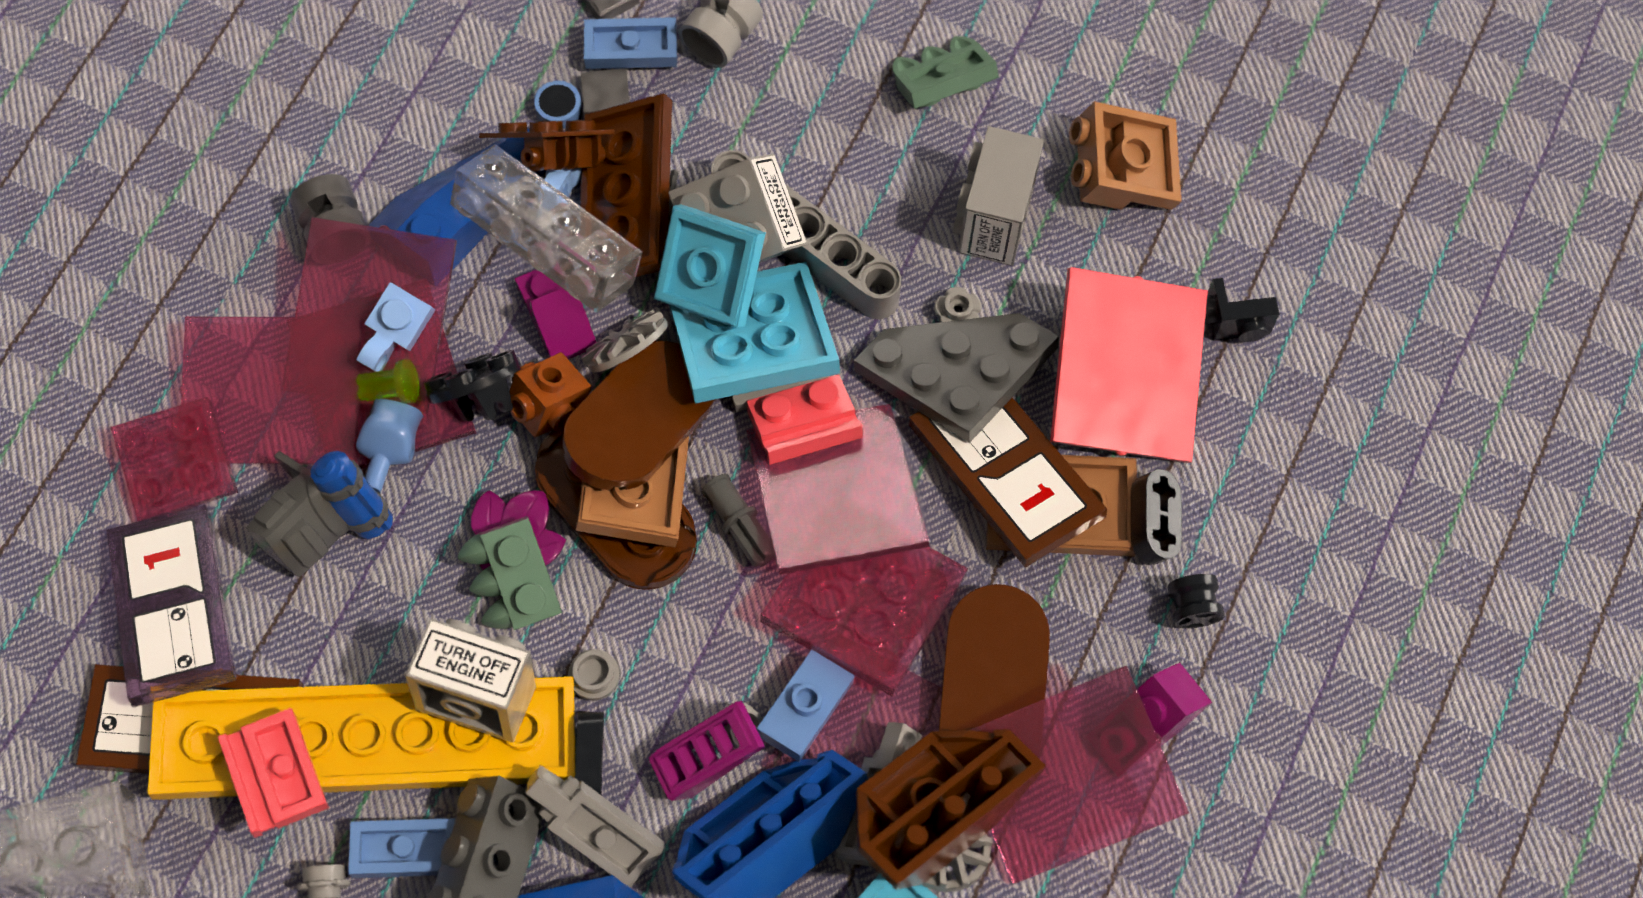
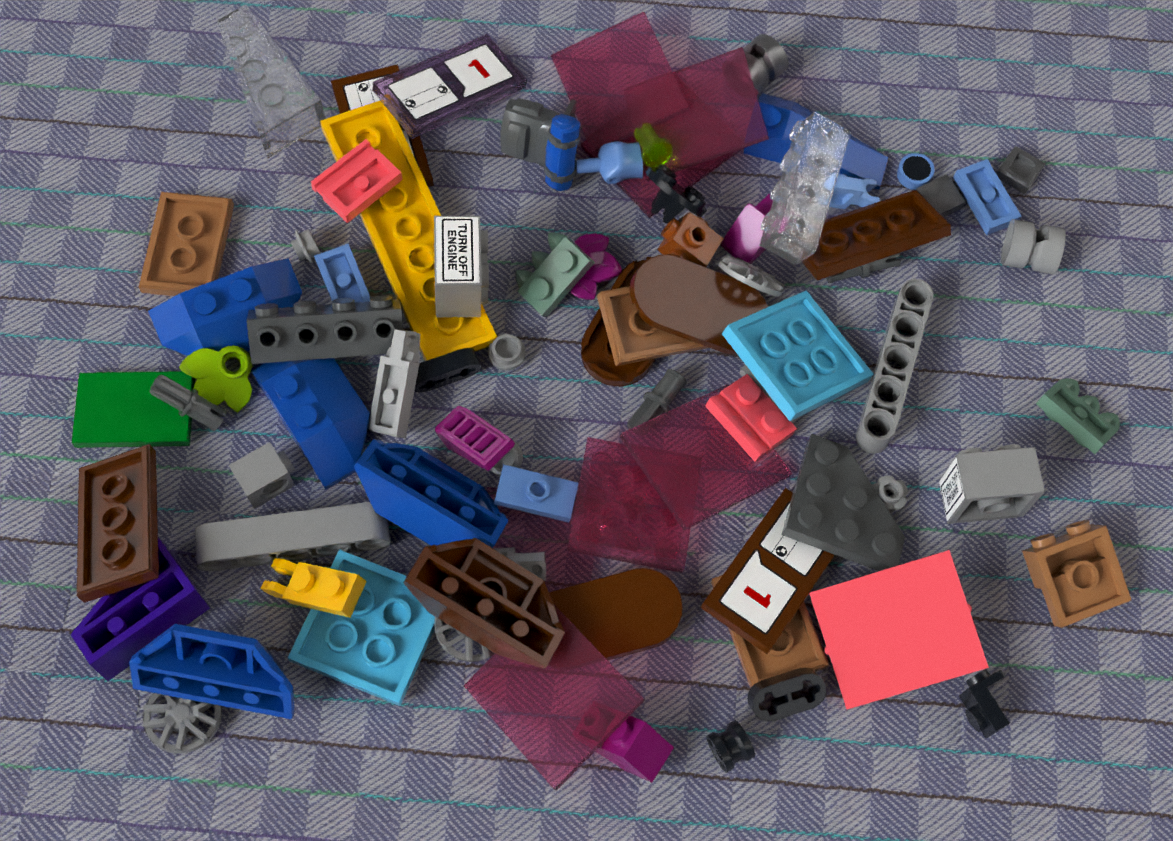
camera: 70 degrees right, 0 degrees up
(174, 459) = (549, 50): clear pink tile -> none
(397, 320) = (695, 129): light blue plate -> none
(552, 147) = (875, 172): reddish brown hinge -> none
(709, 265) = (827, 301): medium azure tile -> none
(752, 196) = (877, 307): light grey brick -> none

